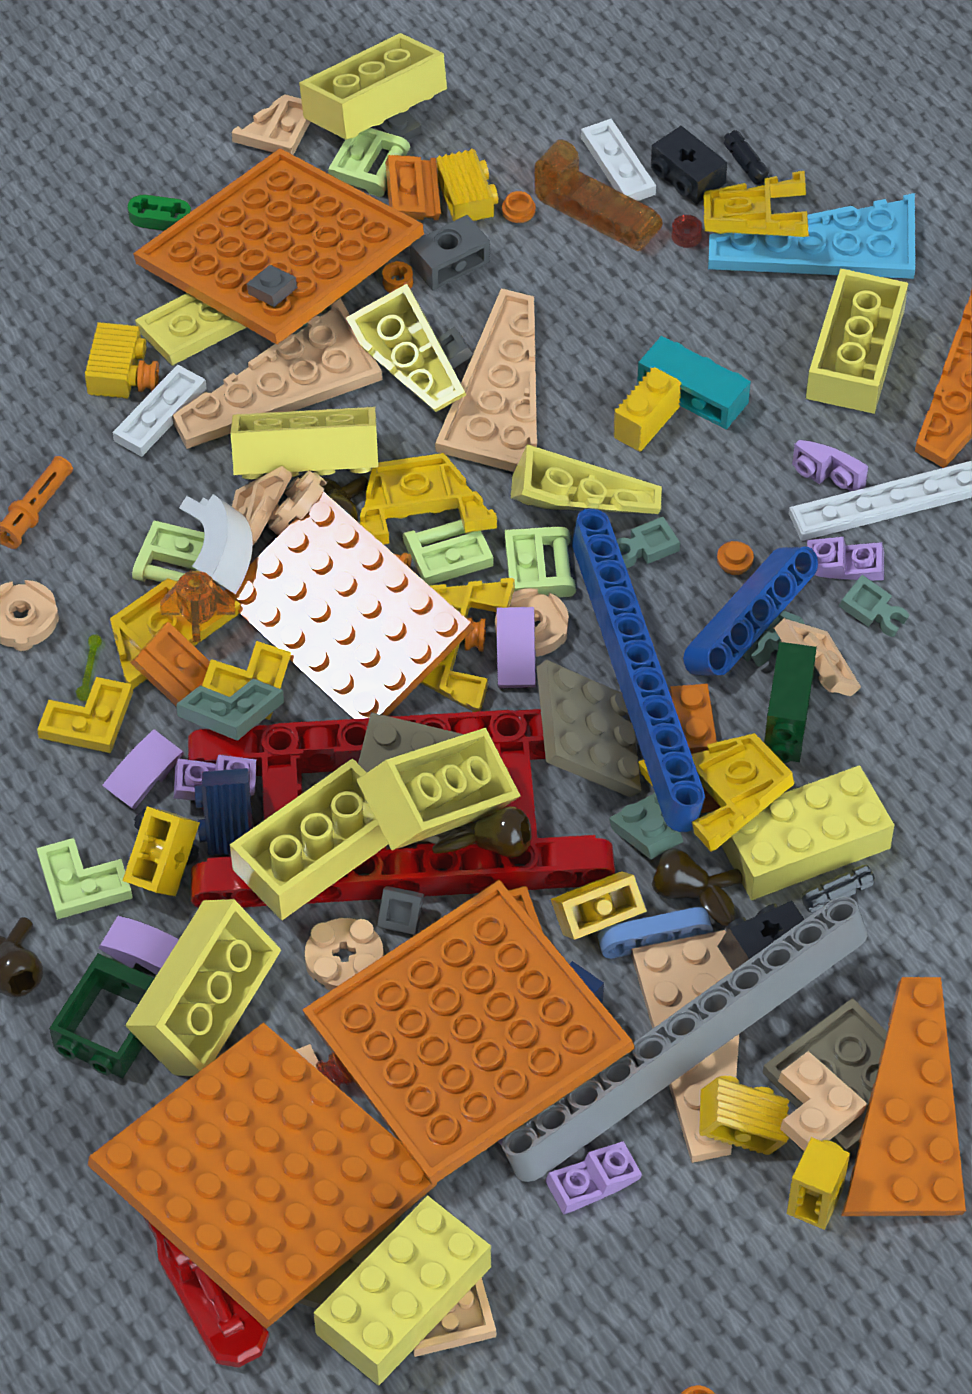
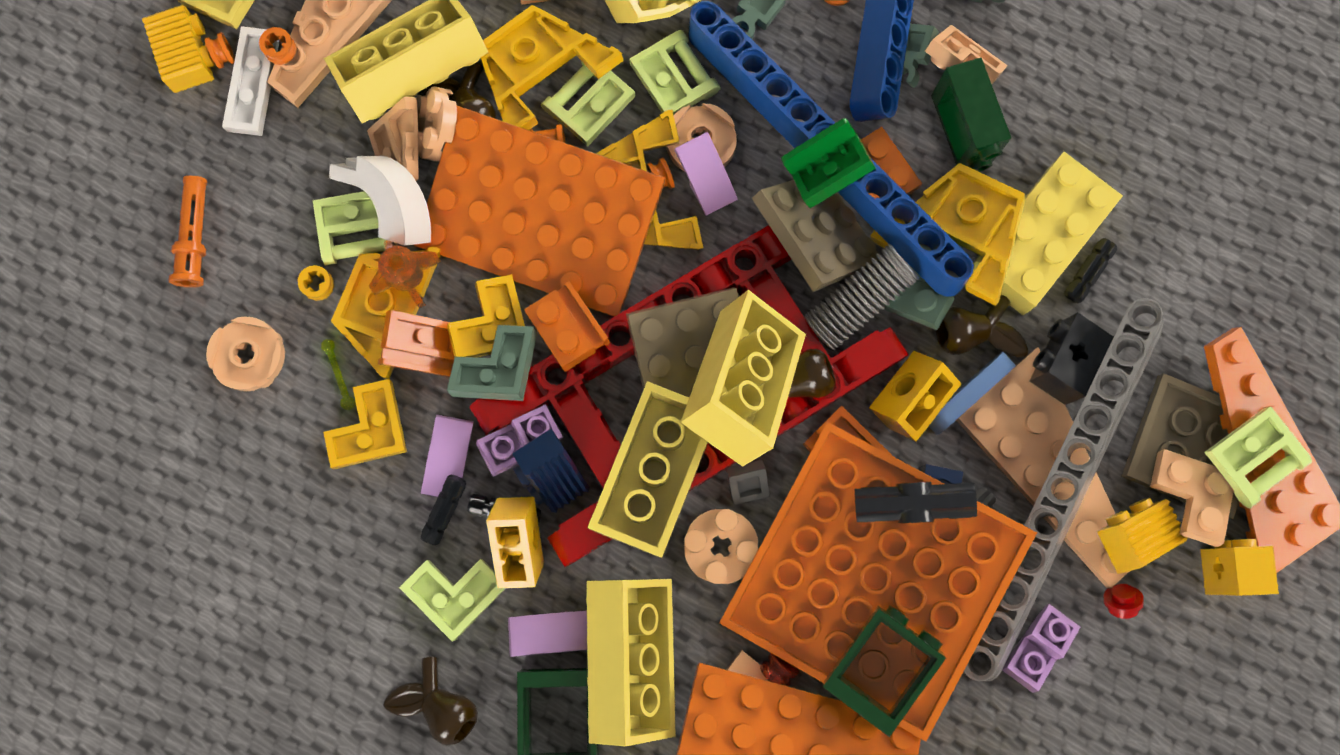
camera: 30 degrees left, 25 degrees up
(113, 806) = (443, 509): none -> black axle
(122, 594) = (306, 277): none -> yellow bush
(203, 398) = (266, 45): none -> orange bush
(312, 706) = (567, 326): none -> orange plate
(413, 1062) = (860, 701): none -> dark green window
(534, 965) = (916, 502): none -> black piece
(619, 662) = (828, 162): none -> green bracket
(619, 784) = (824, 326): none -> light grey piece
(696, 1170) = (1123, 601): none -> red plate
(884, 1074) = (1251, 446): none -> yellowish green plate

